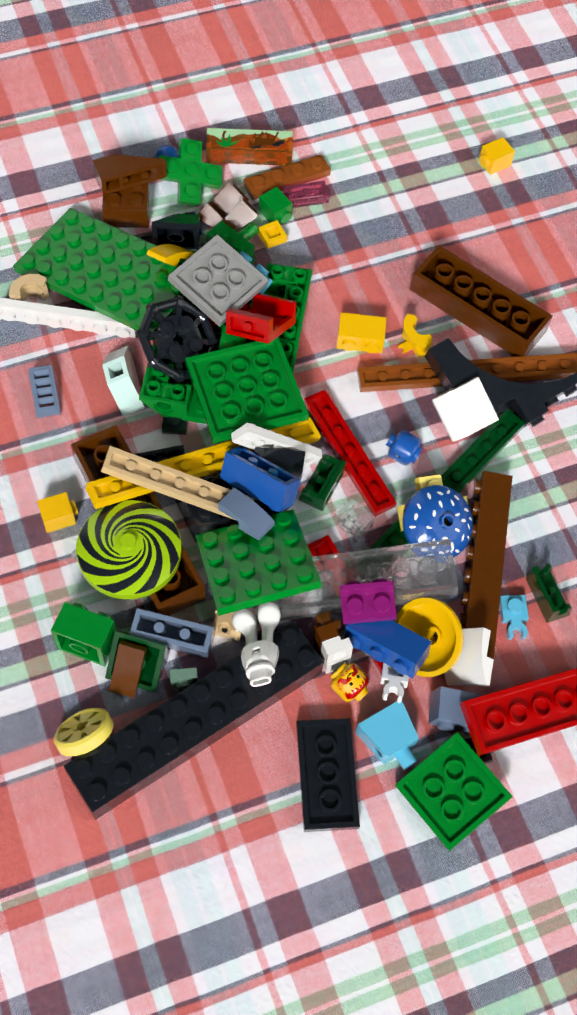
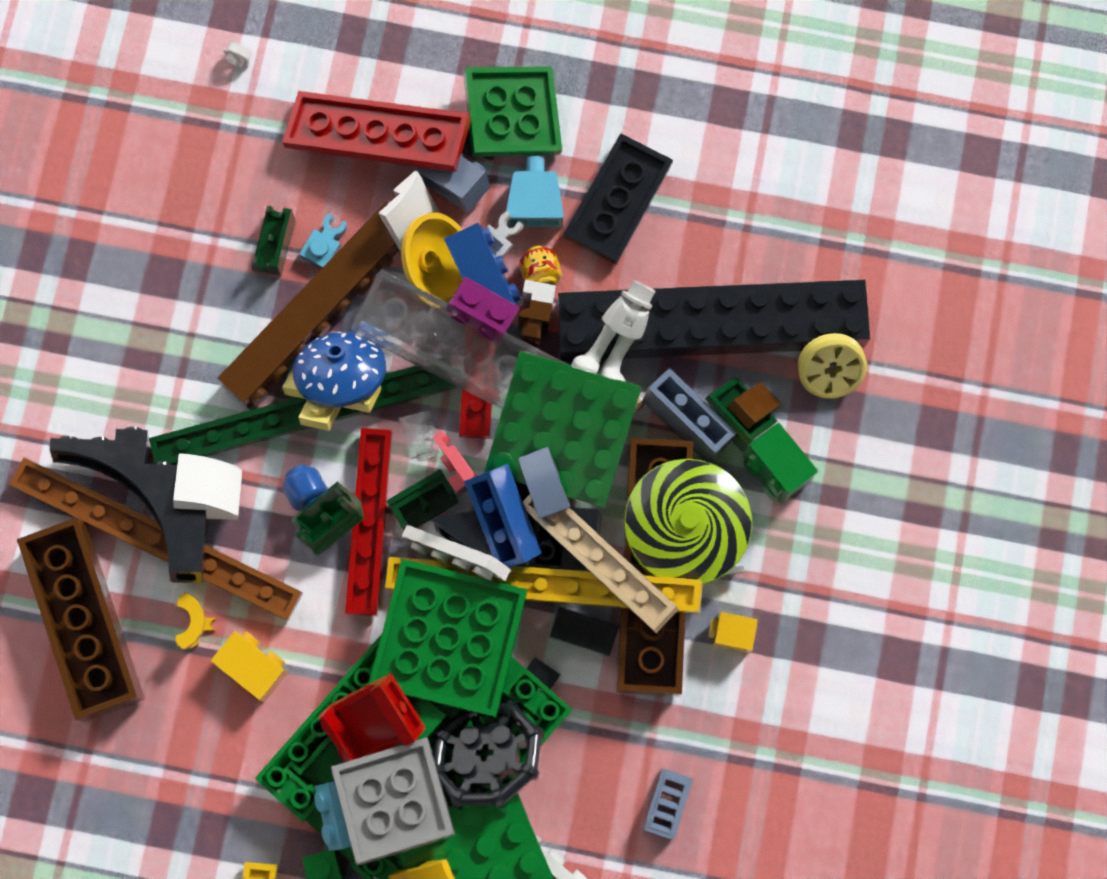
camera: 145 degrees left, 15 degrees up
(123, 380) = (568, 766): light aqua slope -> none
(183, 678) = (702, 368): sand green plate -> none
(315, 508) = (454, 461): none -> coral plate
(374, 432) = (328, 518): none -> dark green hinge

